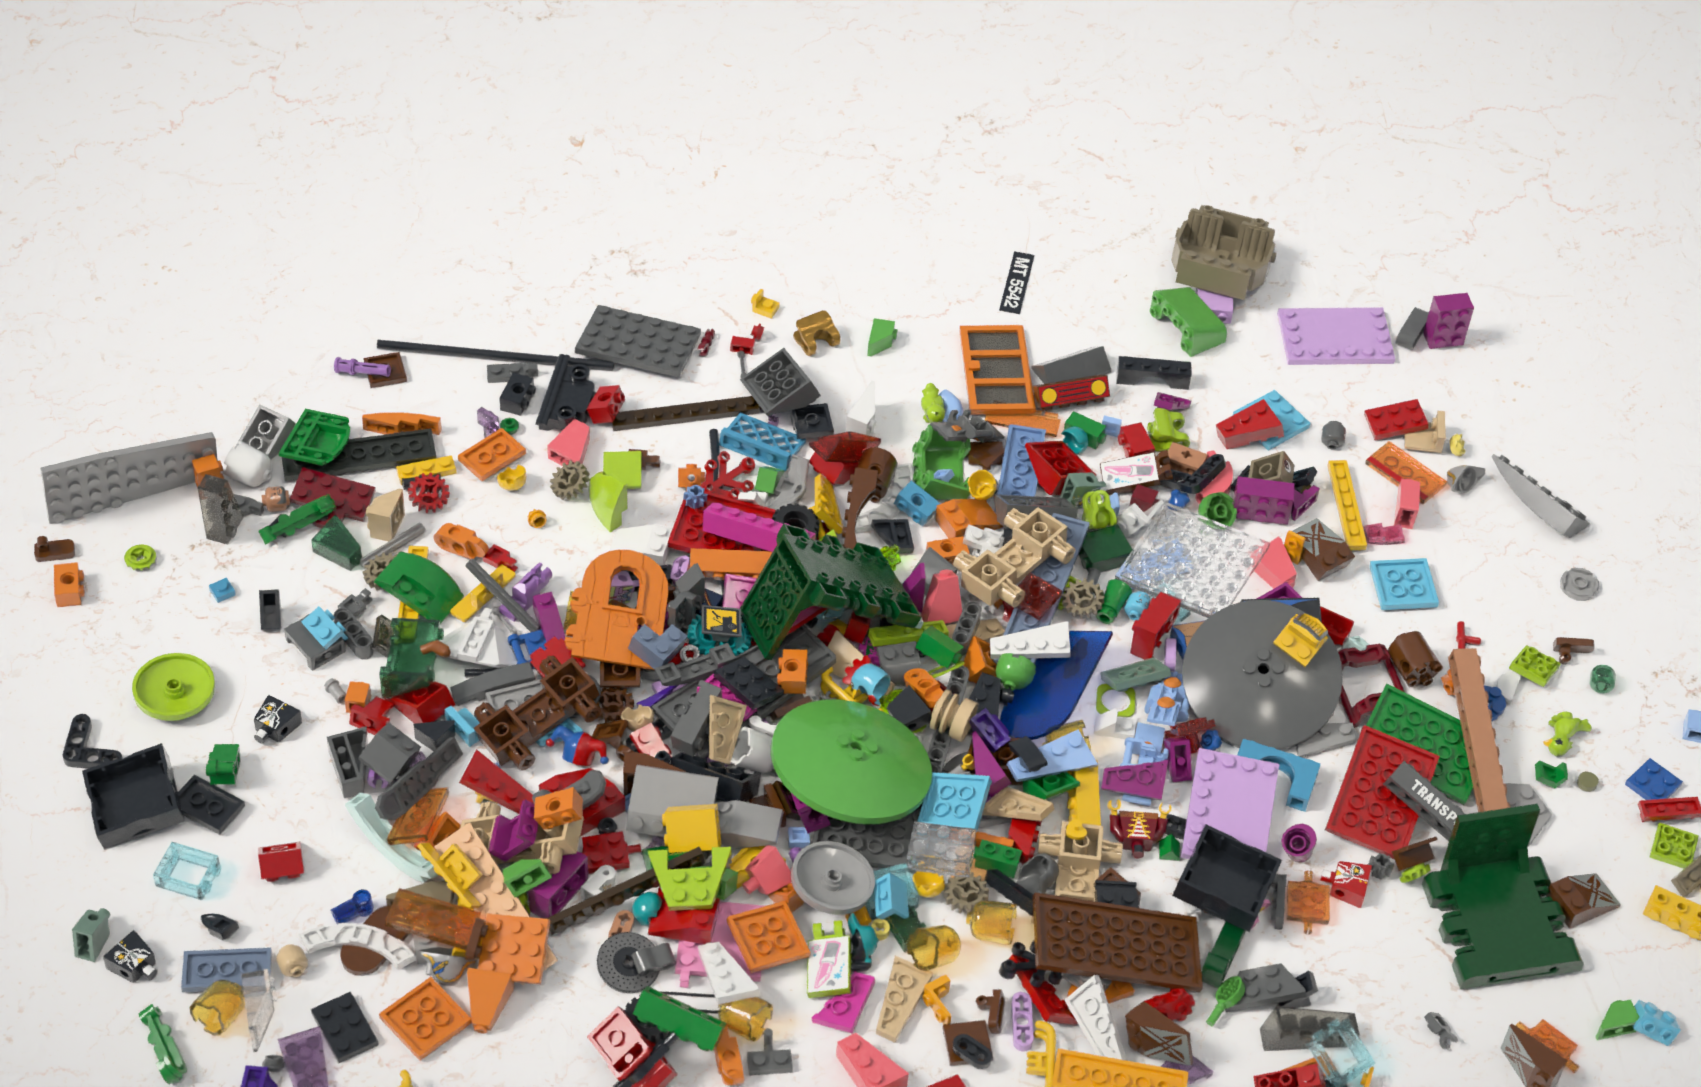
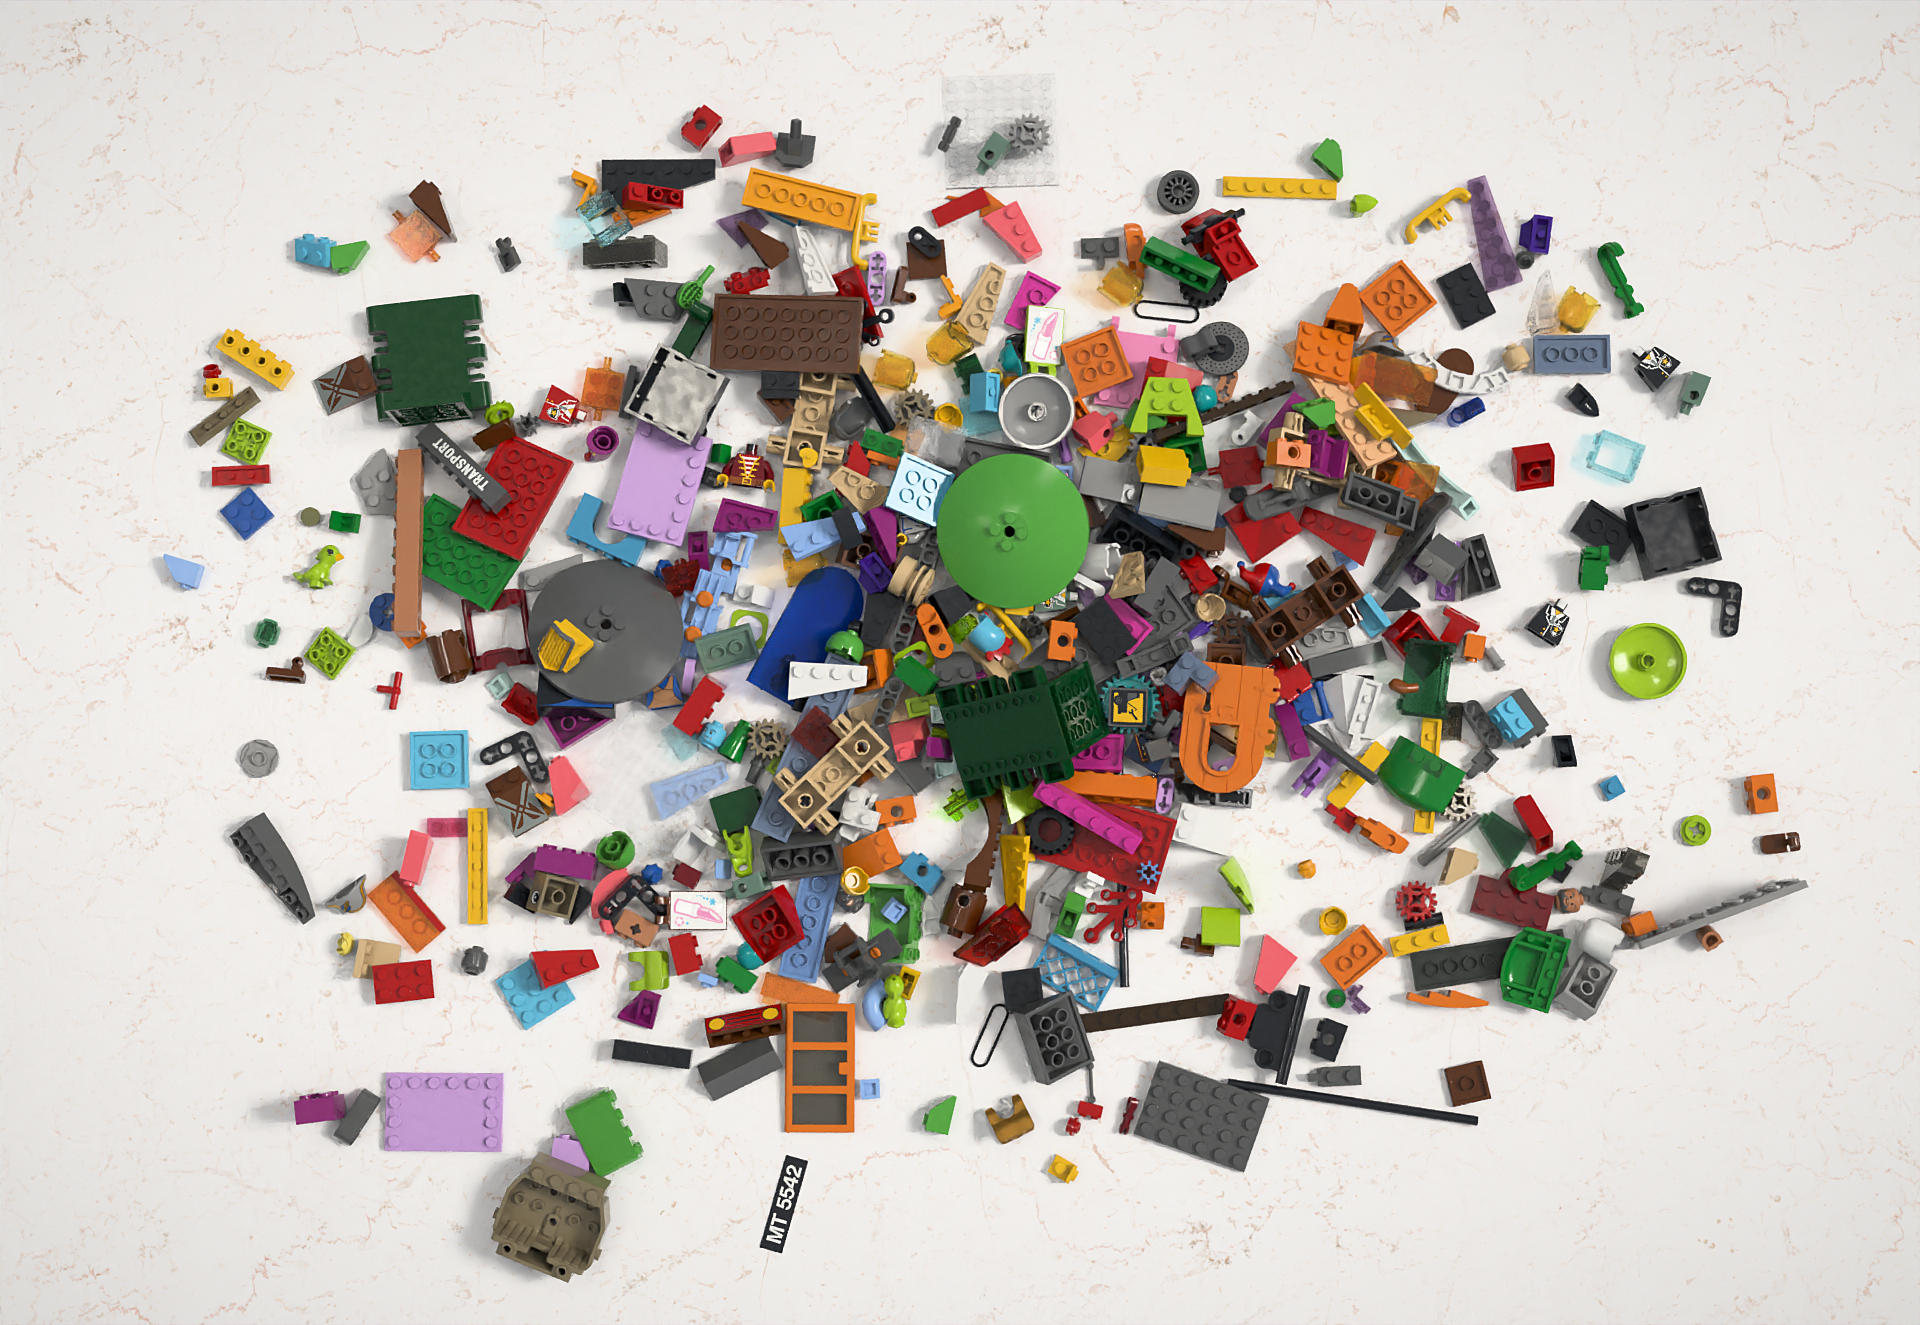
camera: 175 degrees left, 35 degrees up
(306, 553) = (1533, 823): none -> red slope
(353, 366) = (1501, 1081): medium lavender pin -> none
(456, 795) = (1380, 500): none -> dark grey slope
(474, 949) = (1357, 351): reddish brown plate -> none
(569, 480) = (1274, 914): dark tan gear -> none
(725, 975) = (1135, 310): white wing -> none
(849, 394) = (981, 1034): none -> black piece
(895, 532) = (946, 837): black wing -> none
(917, 427) = (910, 979): none -> yellow slope
(948, 354) = (870, 1088): none -> light blue plate
(1328, 596) = (516, 748): none -> black beam

